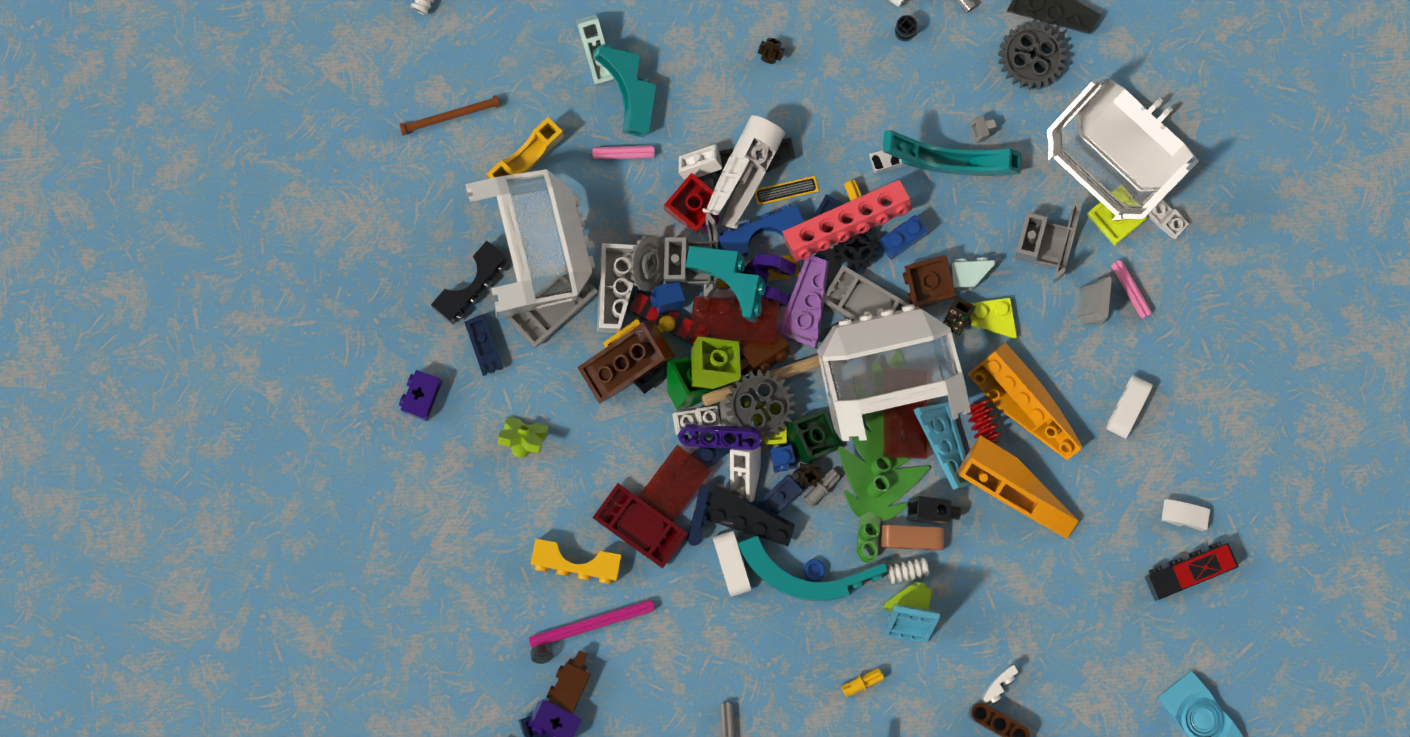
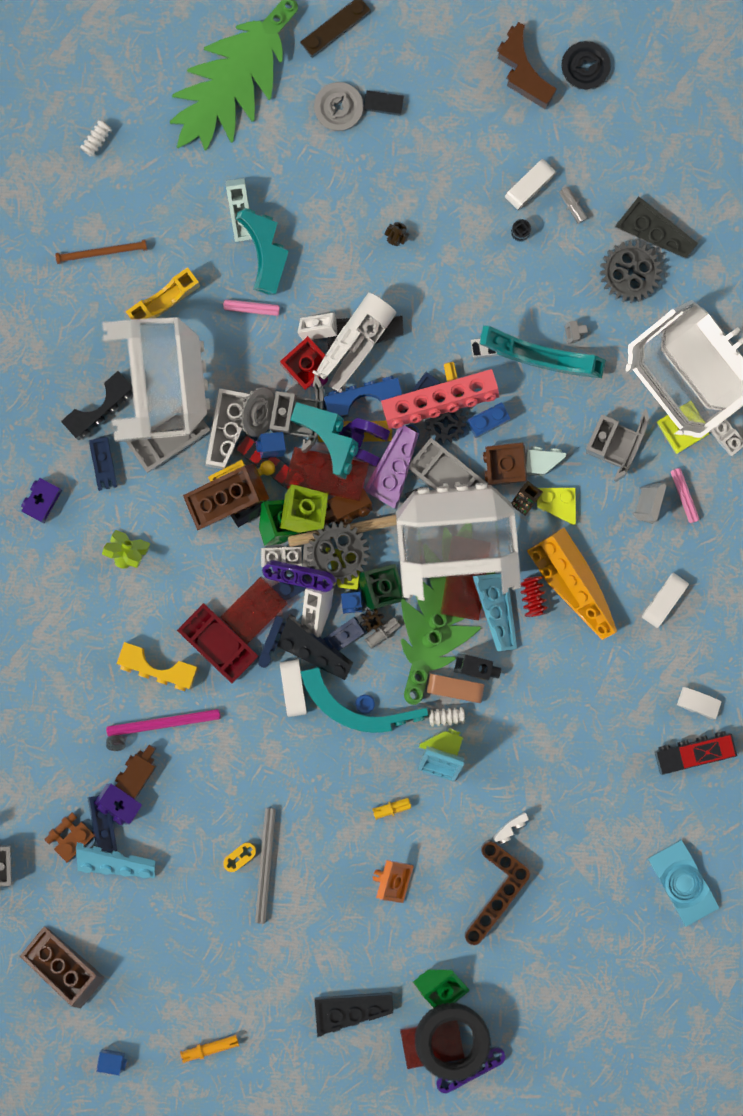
camera: 10 degrees right, 5 degrees up
(786, 190) = (392, 362): sticker -> none
(1015, 485) = (551, 655): light orange wedge -> none

